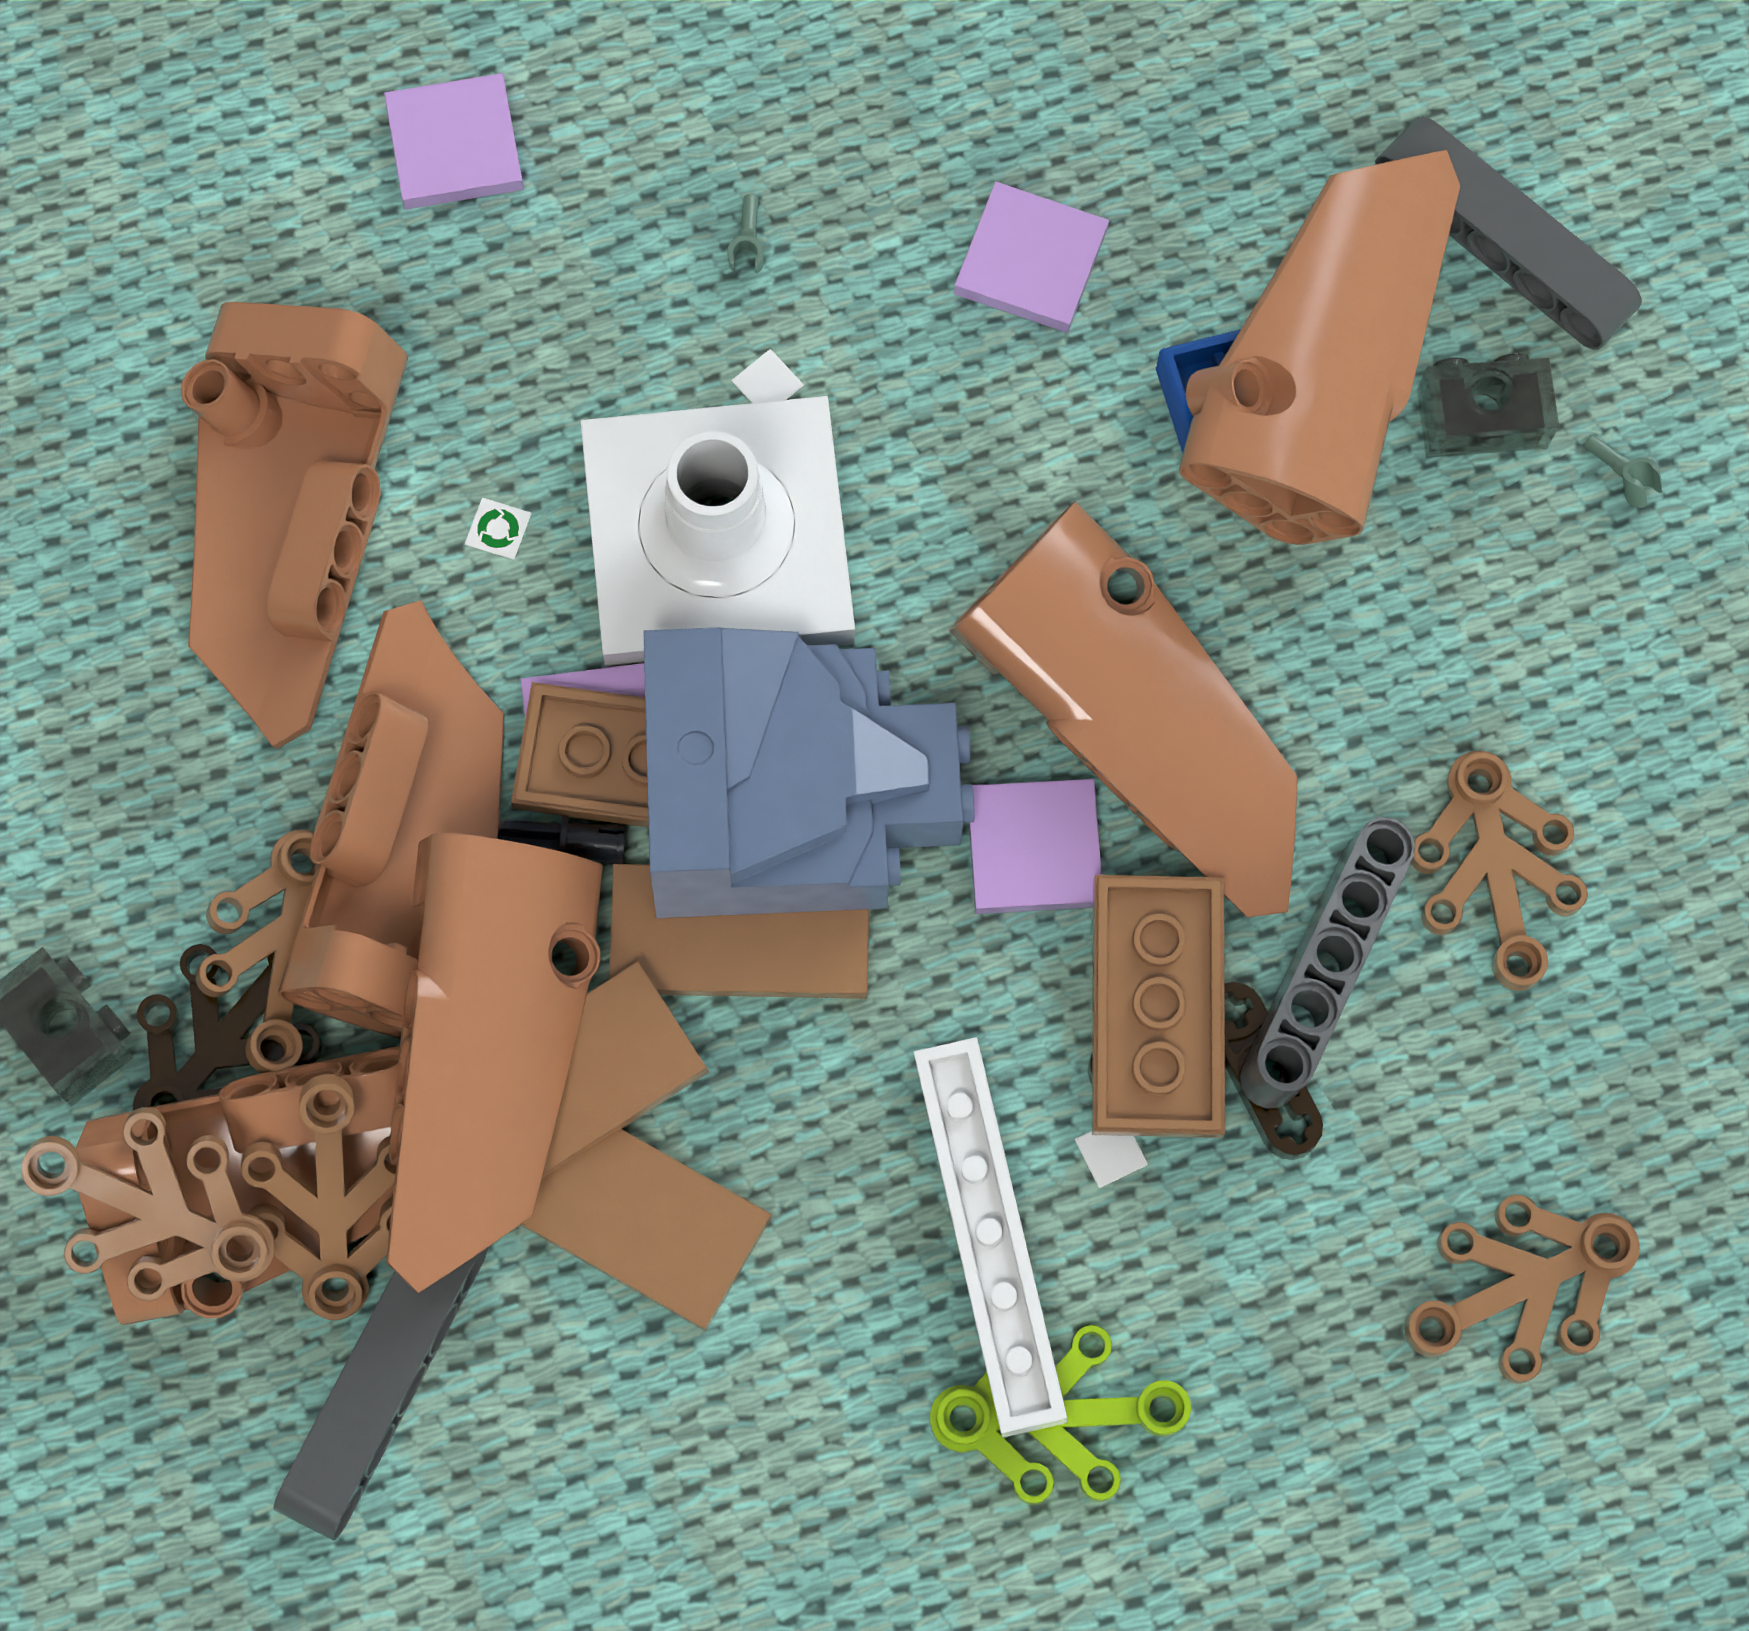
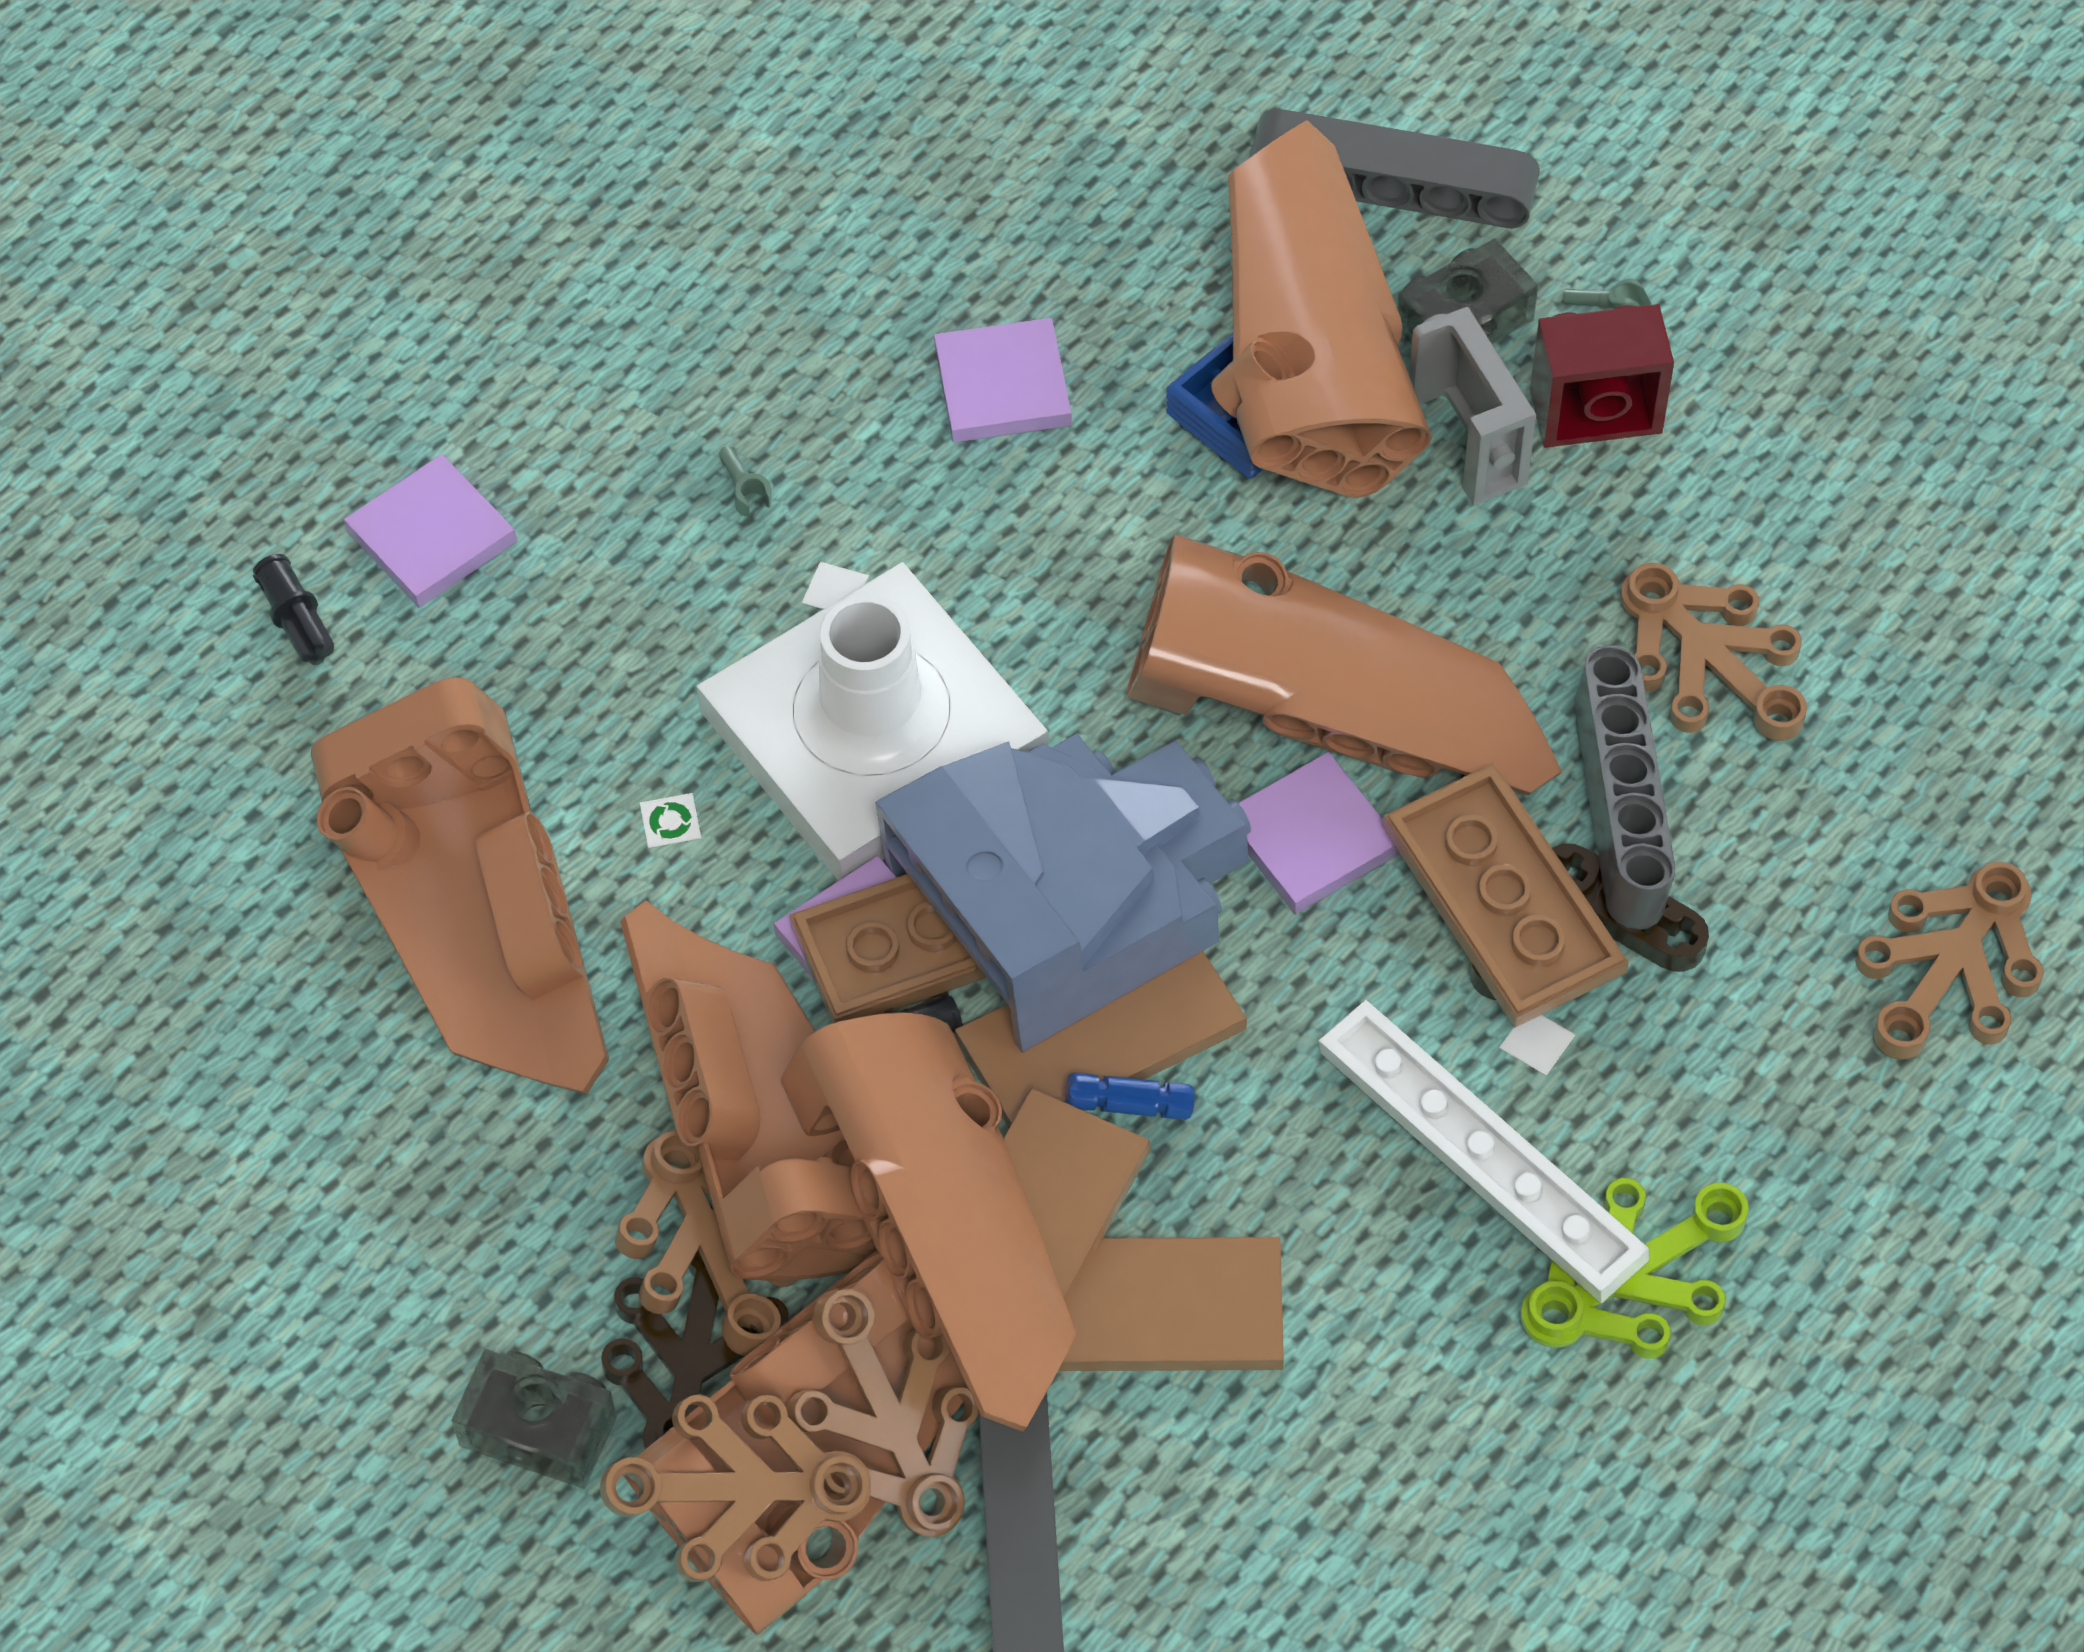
camera: 25 degrees left, 15 degrees down
(294, 156) = (293, 608): none -> black axle
(721, 1011) = (1130, 1096): none -> blue axle
(1425, 568) = (1459, 362): none -> light grey panel
(1560, 547) = (1601, 375): none -> dark red brick

